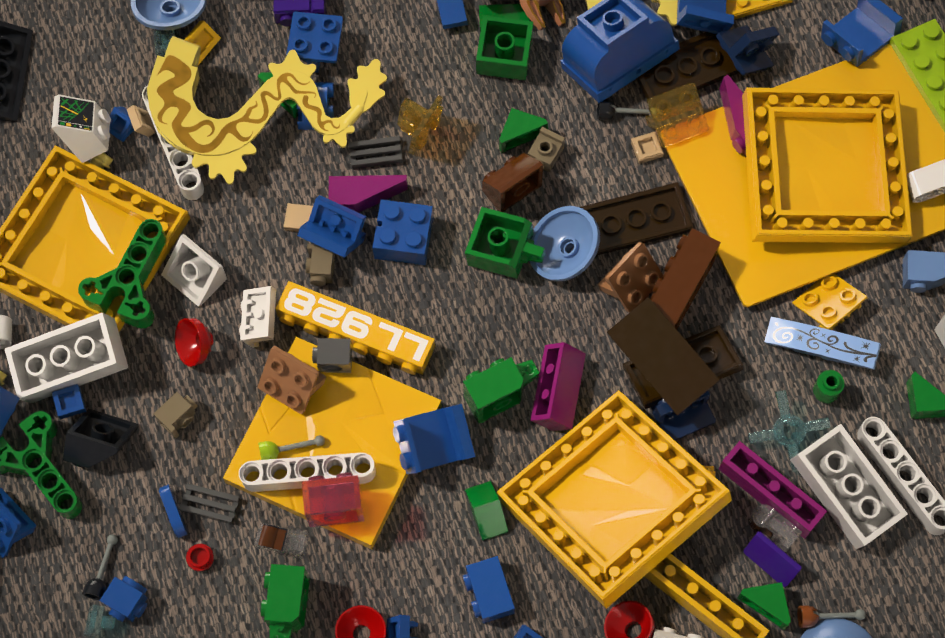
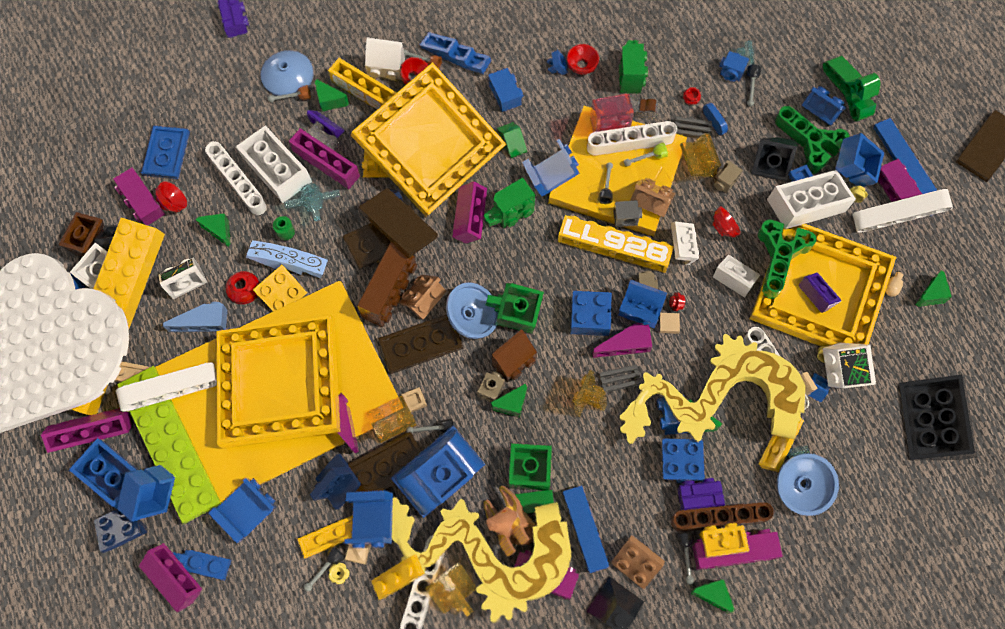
camera: 175 degrees right, 0 degrees up
(88, 236) = (819, 292): none -> dark purple slope
(210, 440) = (701, 156): none -> clear yellow bracket
(283, 241) = (677, 301): none -> red plate
(359, 389) = (606, 195): none -> black hinge
(881, 326) = (246, 294): none -> red piece

